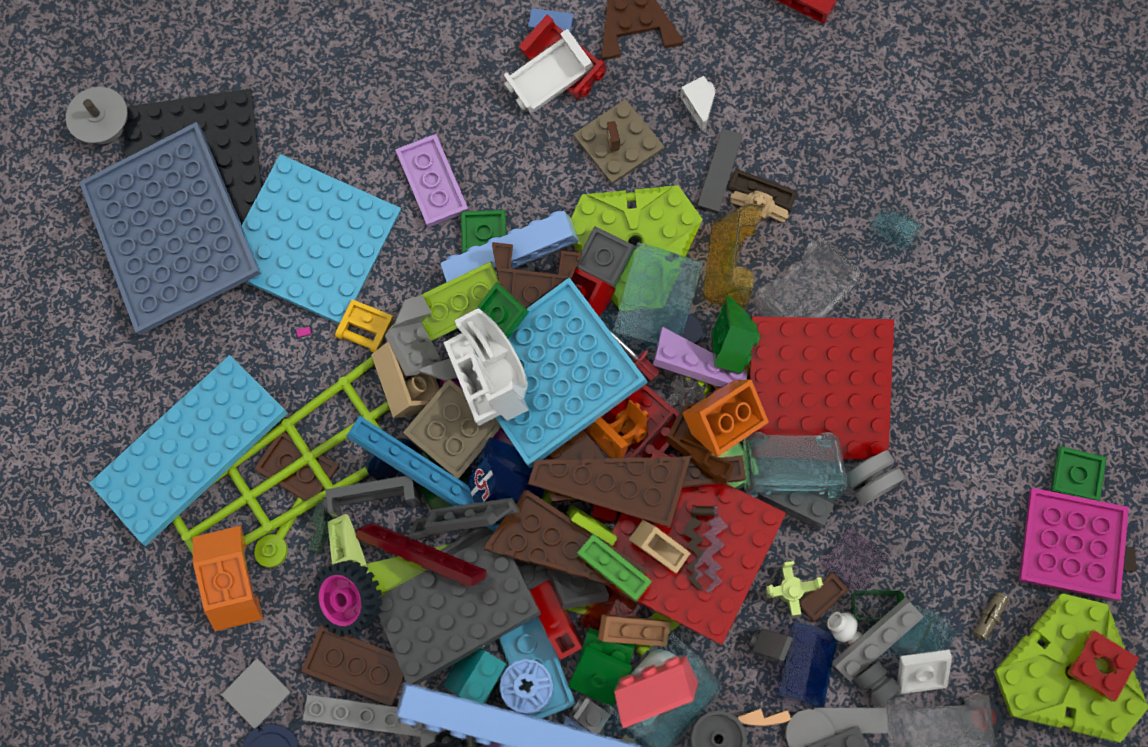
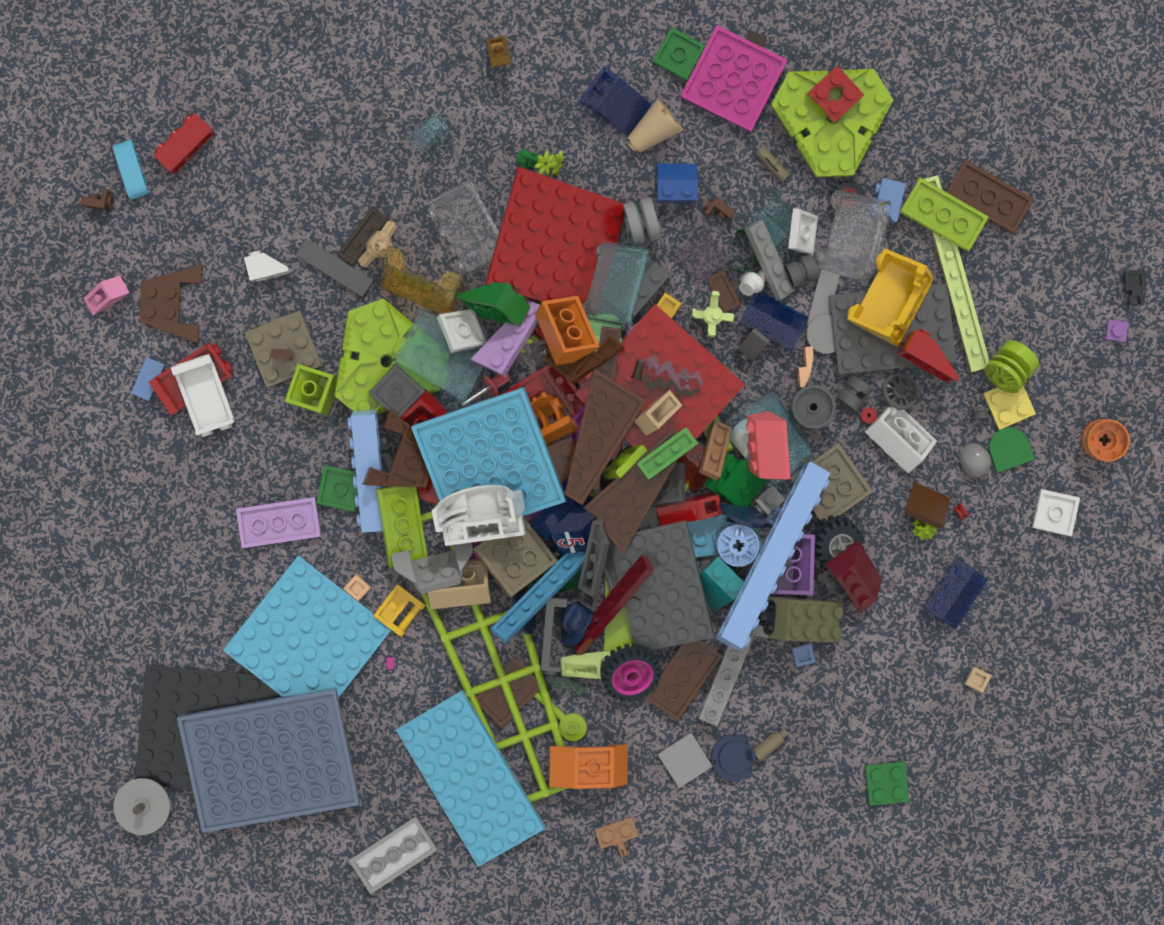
camera: 75 degrees left, 15 degrees up
(88, 387) = (393, 854): none -> piece
(152, 634) = (617, 834): none -> medium nougat plate
(379, 277) = (357, 587): none -> light nougat tile
(393, 519) = (575, 621): none -> dark blue piece
(503, 309) = (425, 492): green plate -> none
(564, 685) = (743, 516): none -> dark blue piece
(581, 175) = (312, 390): none -> lime slope
(691, 311) = (461, 330): none -> white tile
(787, 536) = (668, 305): none -> yellow plate
(905, 346) = (531, 159): none -> plant
(918, 569) = (723, 211): none -> reddish brown bracket
(929, 509) = (677, 183): none -> blue slope
(985, 466) = (654, 128): none -> tan cone
(1000, 415) = (615, 101): none -> clear blue slope
(1008, 278) = (498, 51): none -> pearl gold slope

